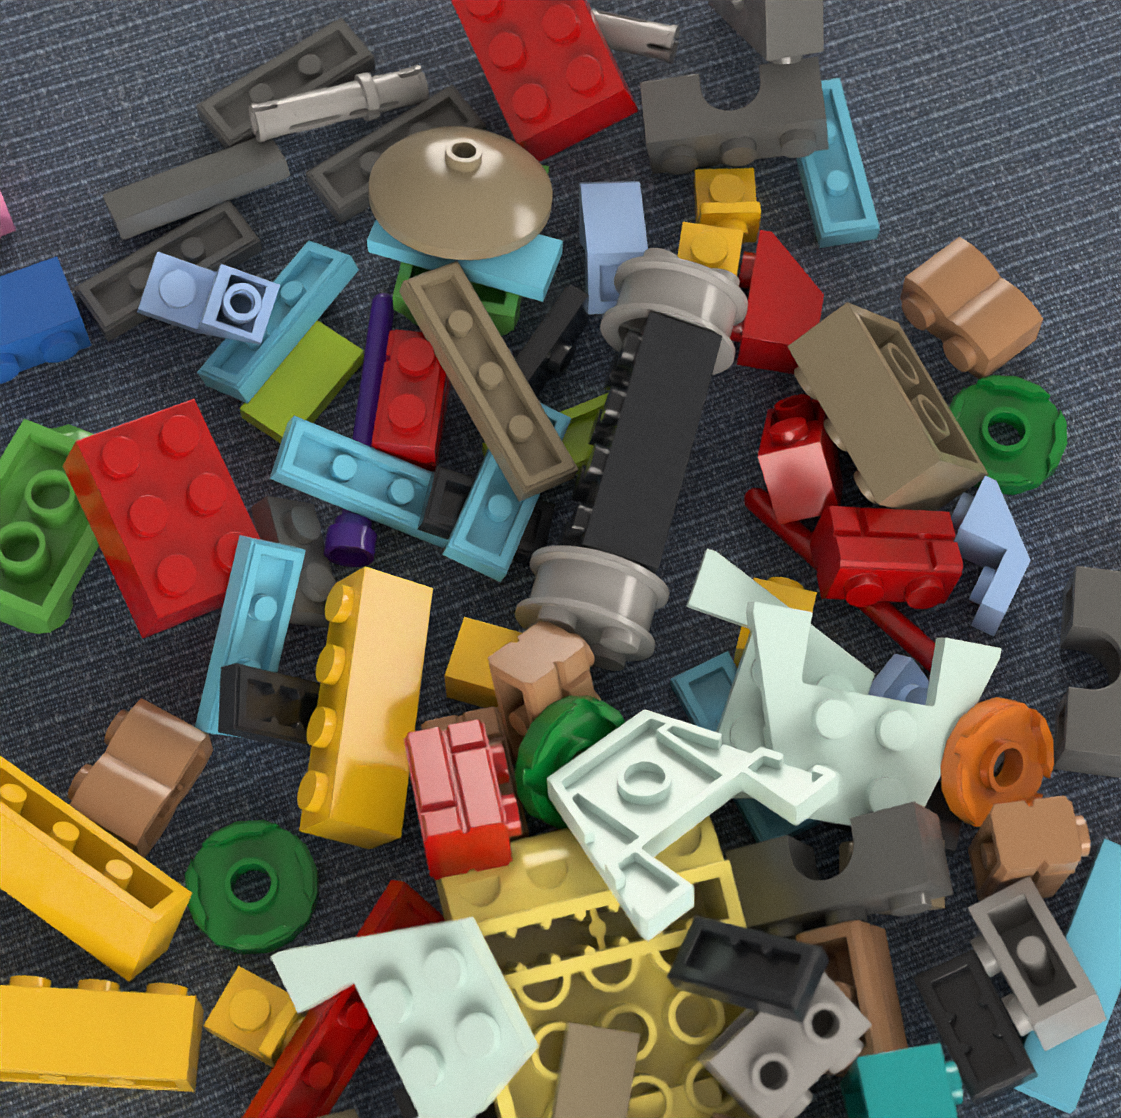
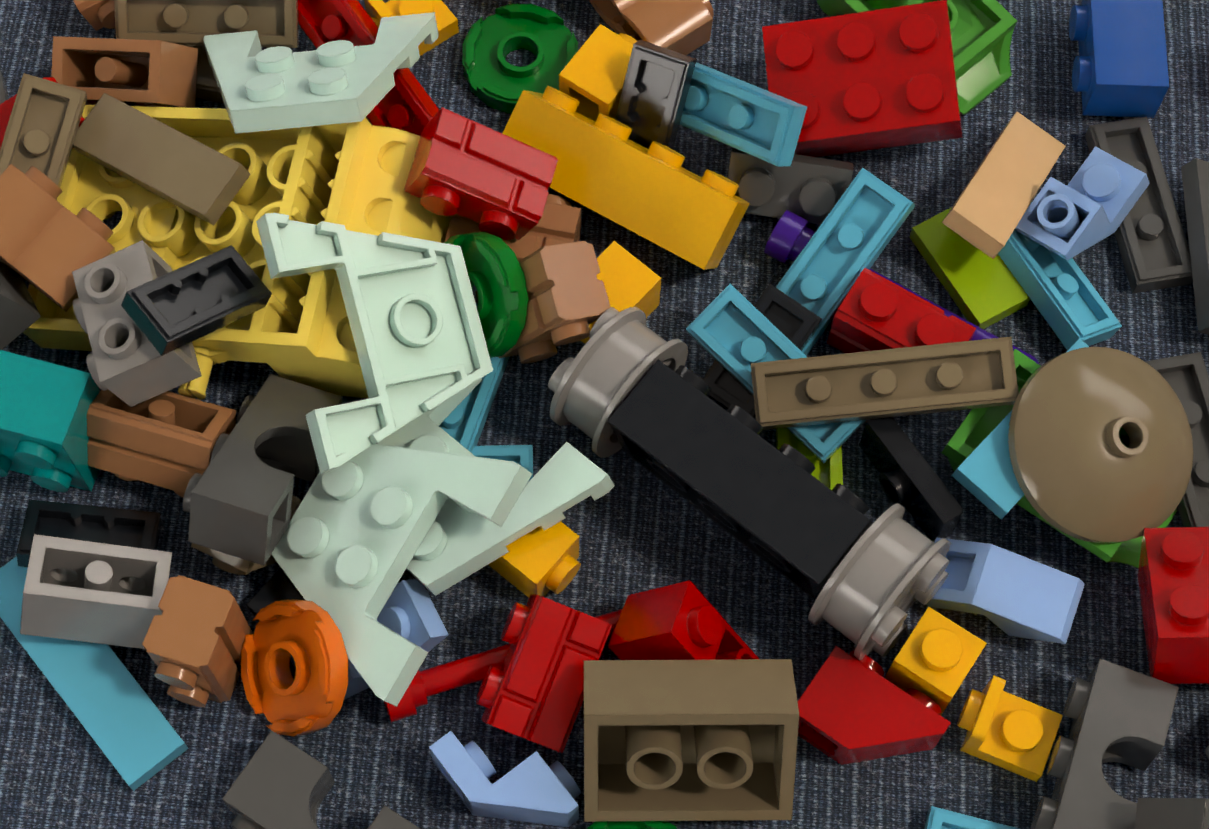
camera: 115 degrees right, 0 degrees up
(216, 368) = (1004, 185): none -> tan tile
(248, 780) = (598, 72): none -> yellow brick

